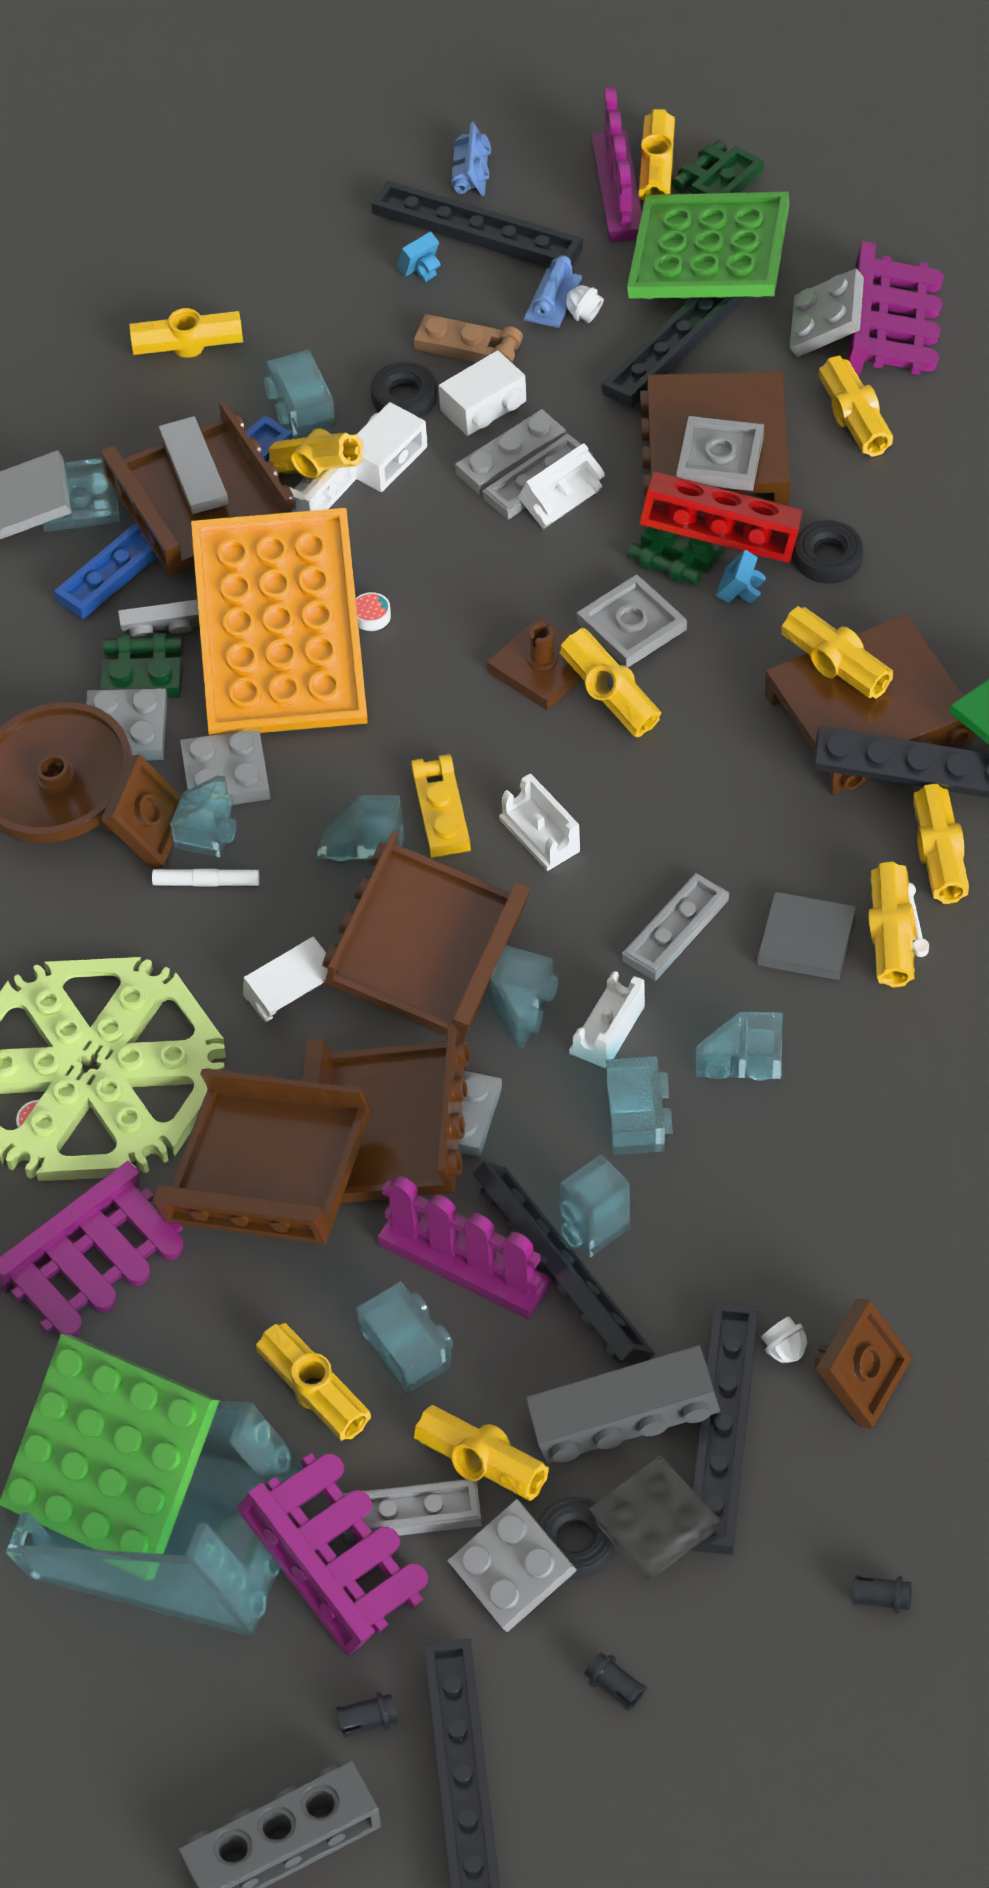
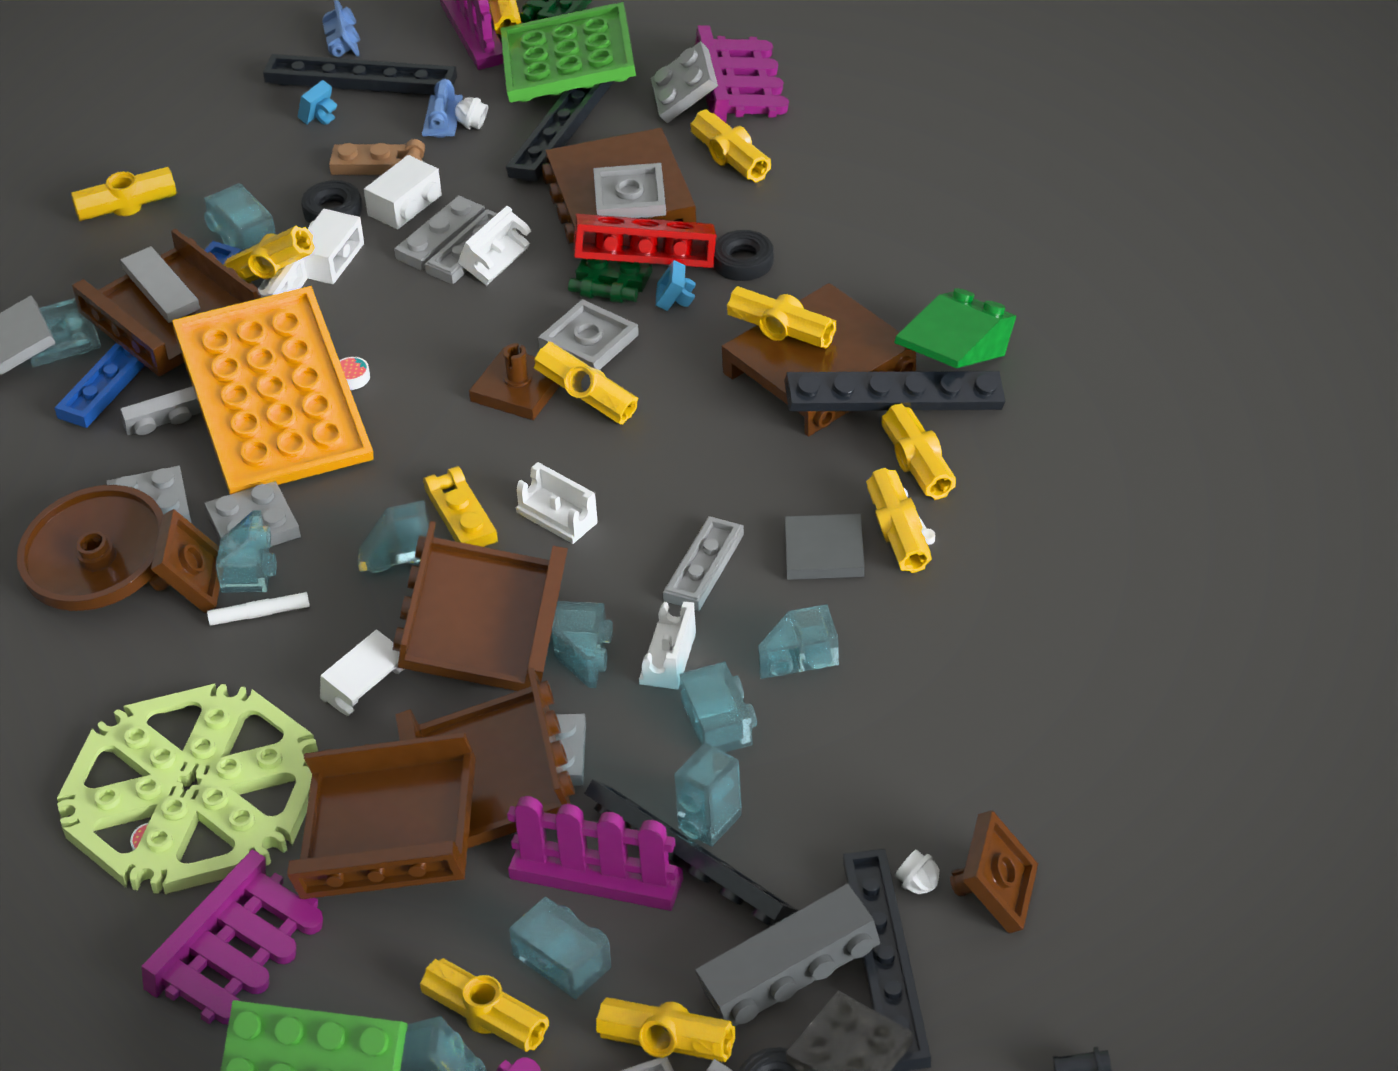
camera: 15 degrees left, 10 degrees down
(143, 672) = (155, 457): dark green plate -> none

